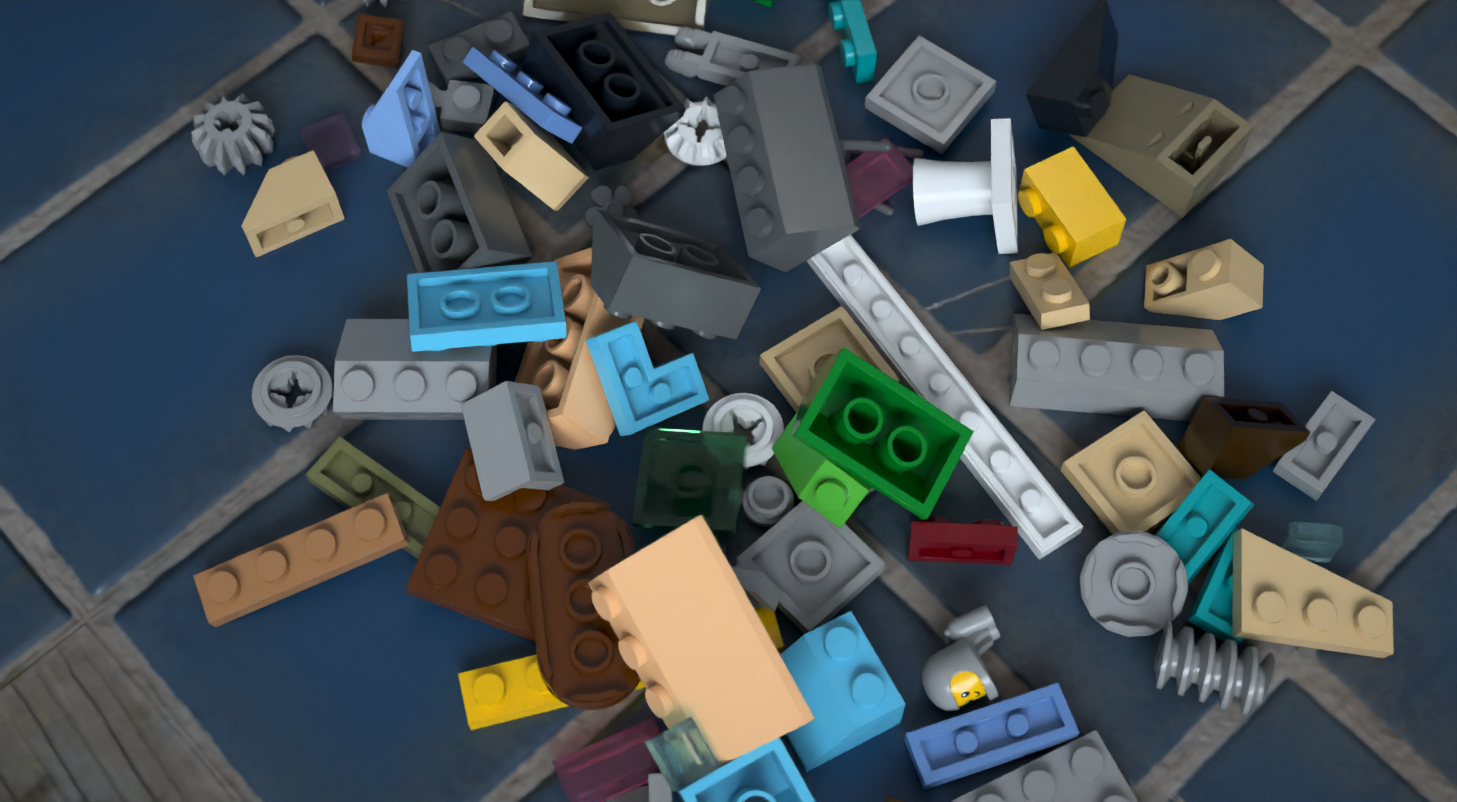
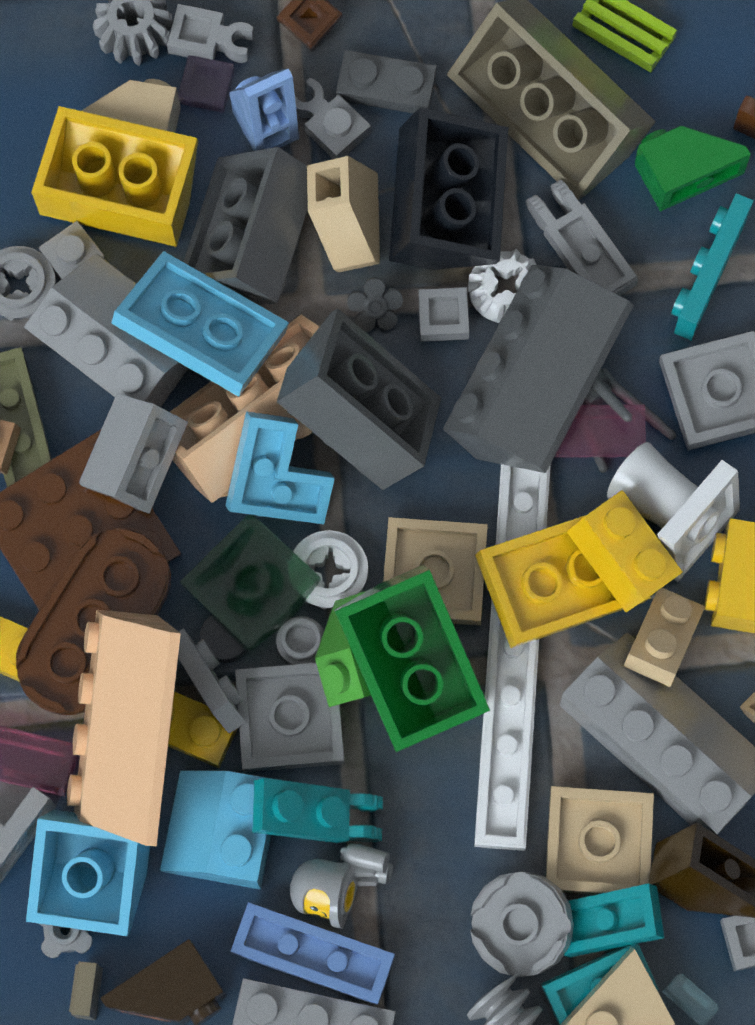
camera: 40 degrees right, 10 degrees up
(300, 106) = (202, 34): none -> light grey plate
(316, 249) = (116, 176): none -> yellow slope
(318, 338) = (69, 249): none -> light grey plate
(524, 93) = (378, 153): medium blue plate -> none
(671, 181) = (443, 314): none -> light grey plate
(682, 754) = (62, 793): clear light blue tile -> none
(899, 617) = (311, 811): none -> teal hinge
(934, 302) = (543, 584): none -> yellow plate
(971, 243) = (624, 551): none -> yellow brick
(977, 543) = (402, 773): dark red plate -> none

